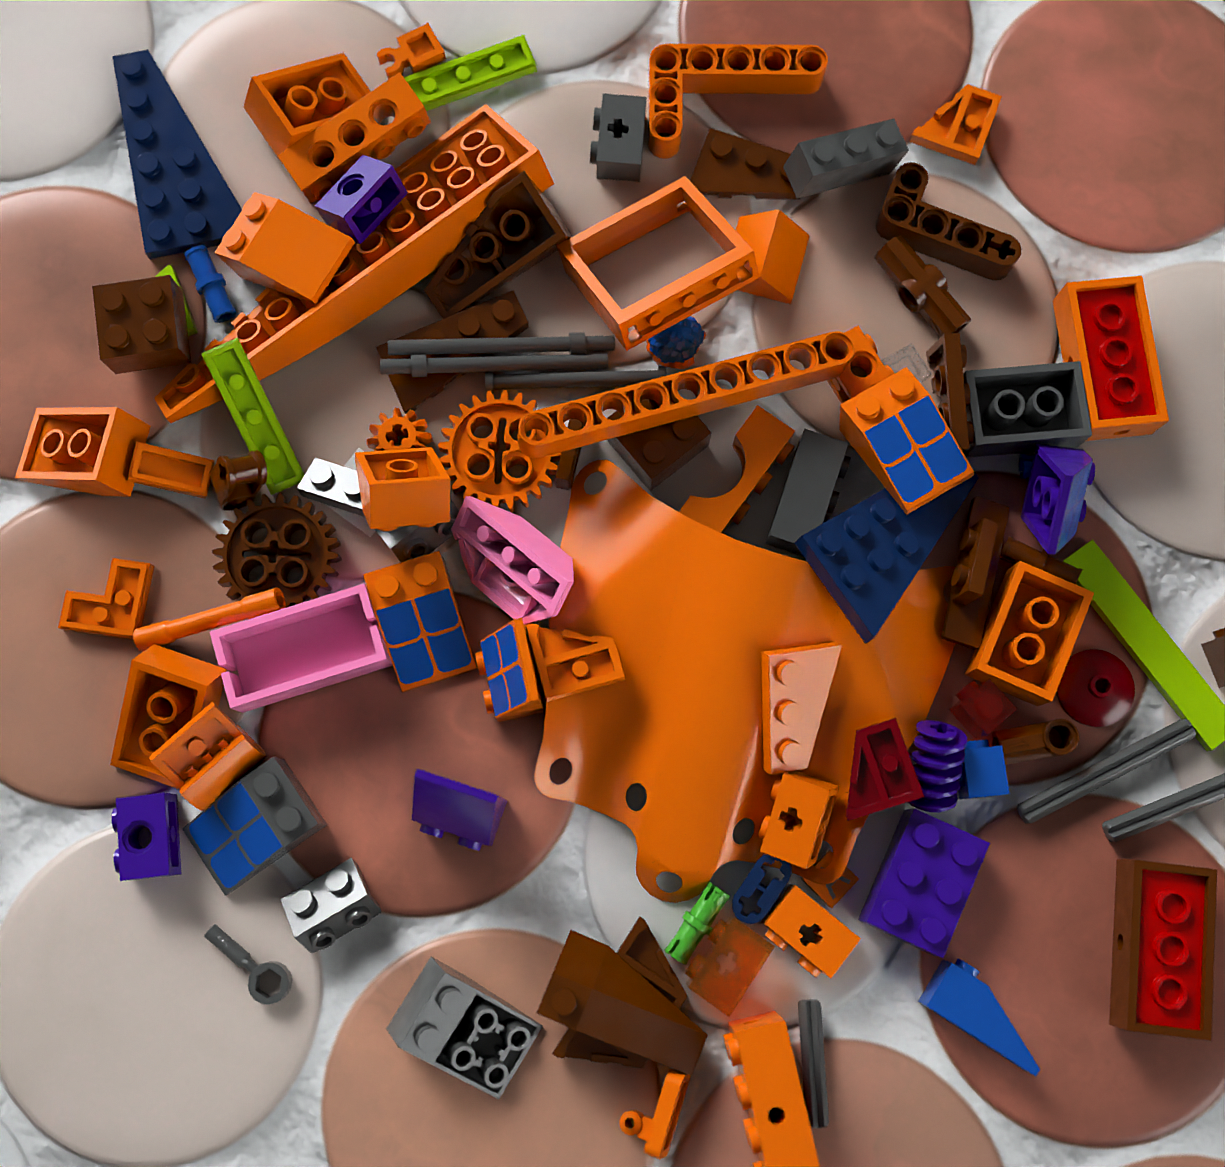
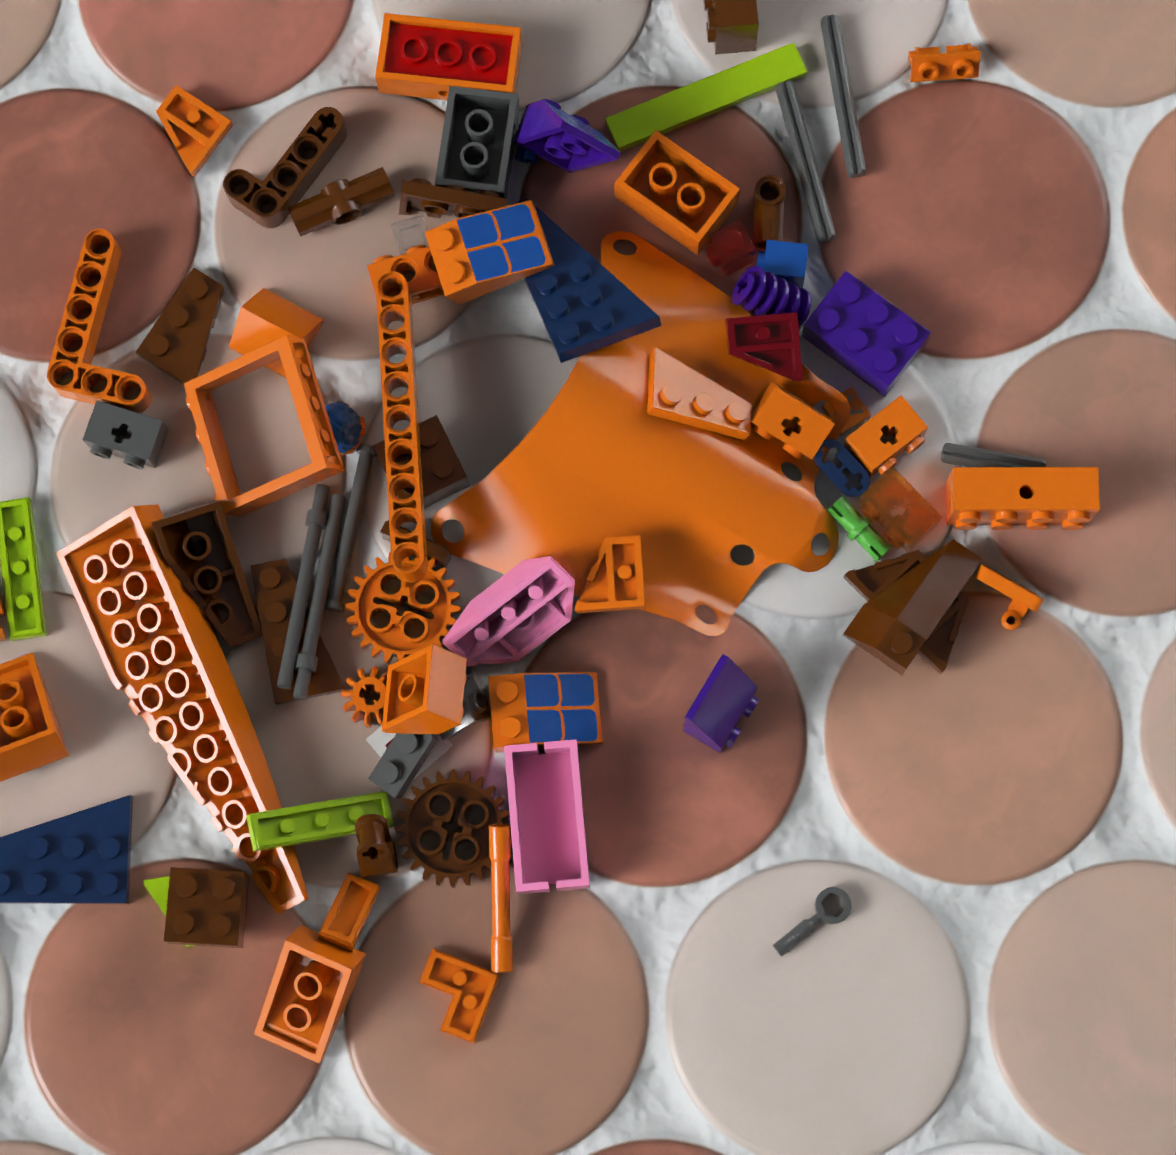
camera: 70 degrees left, 0 degrees up
(159, 700) = (579, 953): orange slope -> none
(163, 854) = (706, 986): dark purple brick -> none
(207, 756) = (626, 916): orange brick -> none
(210, 284) = (172, 846): blue pin -> none
(254, 824) = (694, 894): slope -> none
(283, 248) = (163, 763): orange slope -> none
(330, 906) = (778, 839): dark grey bracket -> none
(360, 119) = (36, 632): orange brick -> none
(362, 198) = (147, 691): dark purple brick -> none
(463, 1028) = (905, 744): dark grey slope -> none
(510, 673) = (612, 635): slope -> none
(759, 446) = (455, 379): orange arch -> none
(808, 489) = (507, 347): dark grey brick -> none
(845, 158) = (204, 237): dark grey brick -> none
(973, 1008) = (977, 319): blue slope -> none
(975, 573) = (611, 223): reddish brown bracket -> none
(1017, 551) = (605, 179): reddish brown pin -> none
(1078, 691) = (737, 165): dark red dish -> none
(1163, 949) = (959, 156): brick -> none

